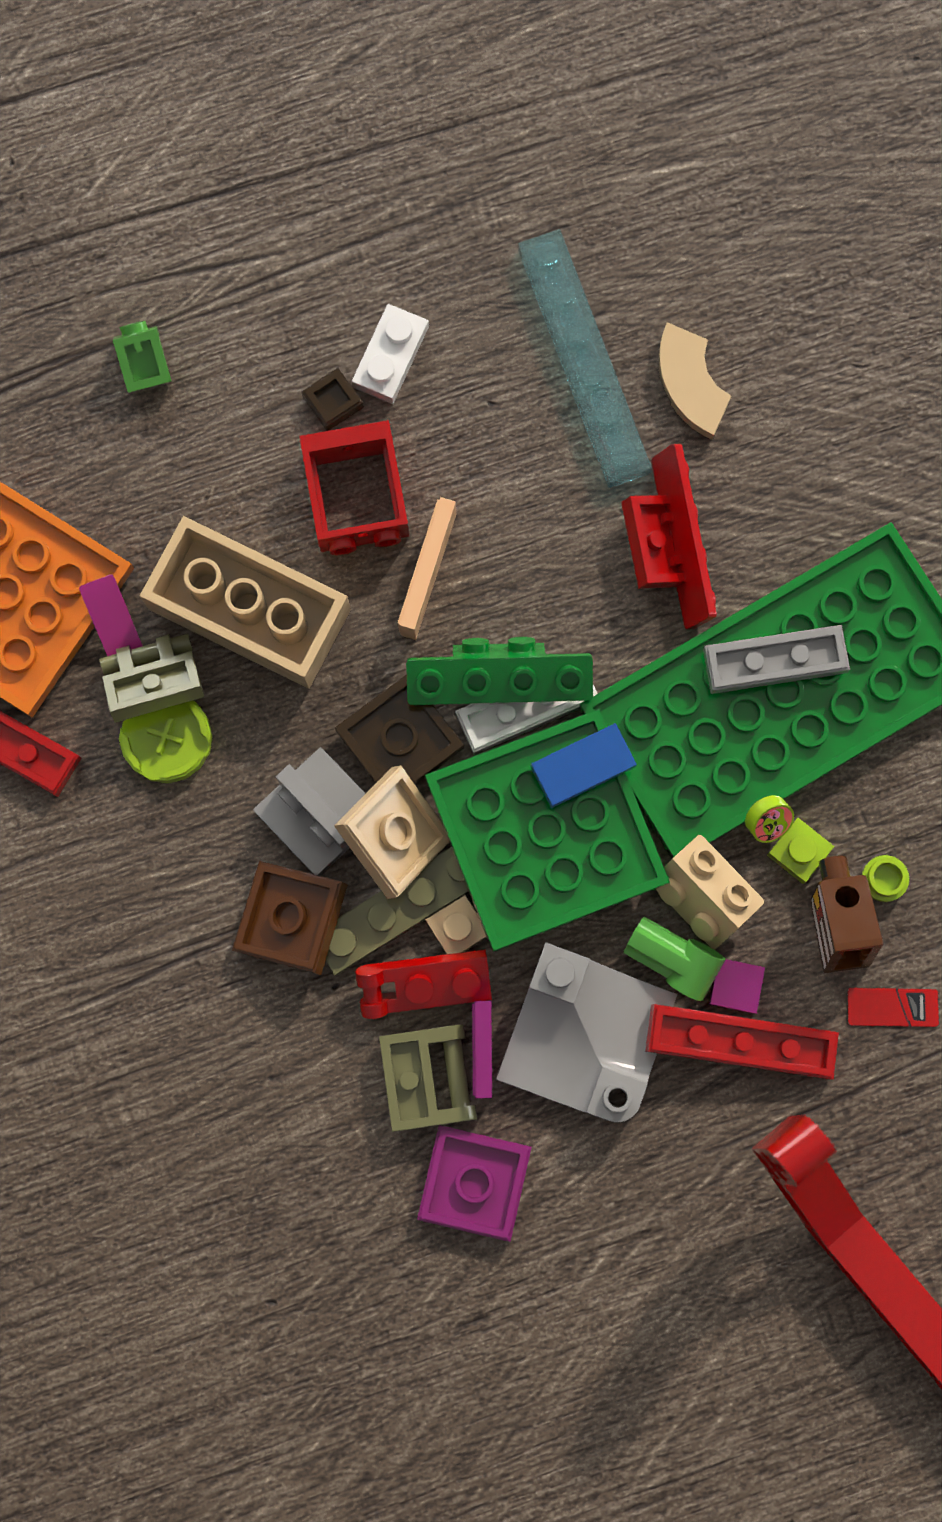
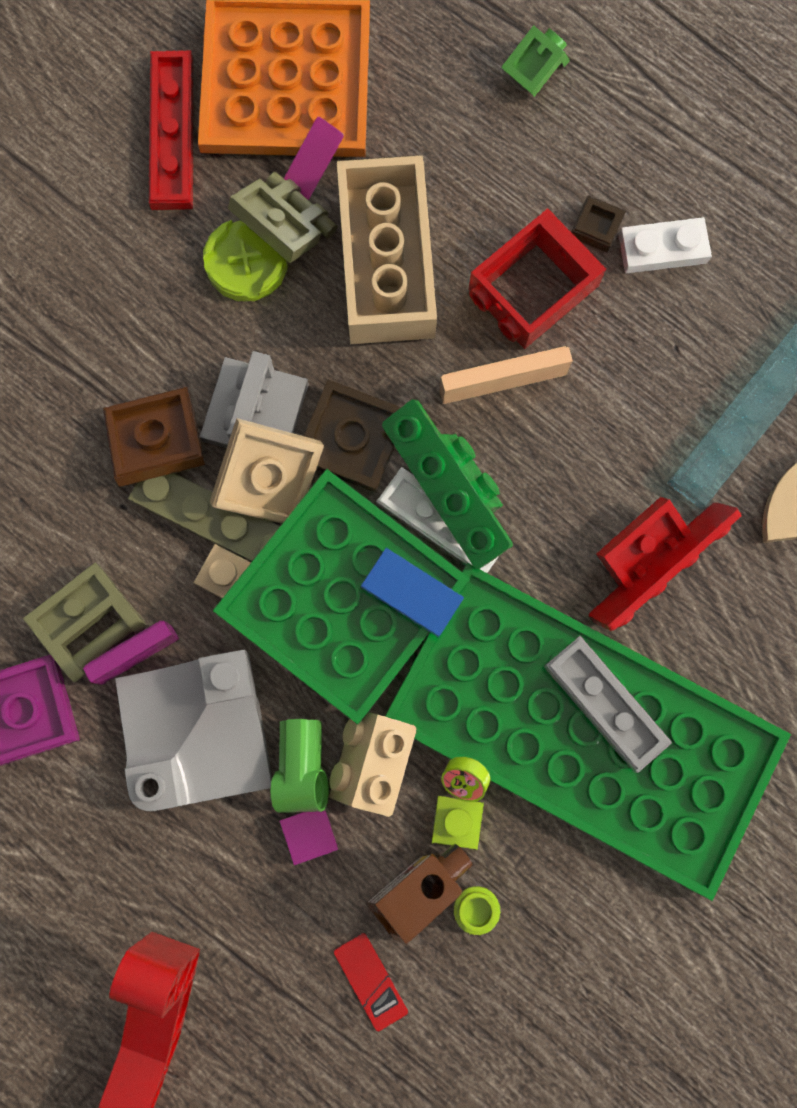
camera: 55 degrees right, 0 degrees up
(424, 983) = (161, 573): red plate -> none
(742, 1041) = (262, 868): red tile -> none

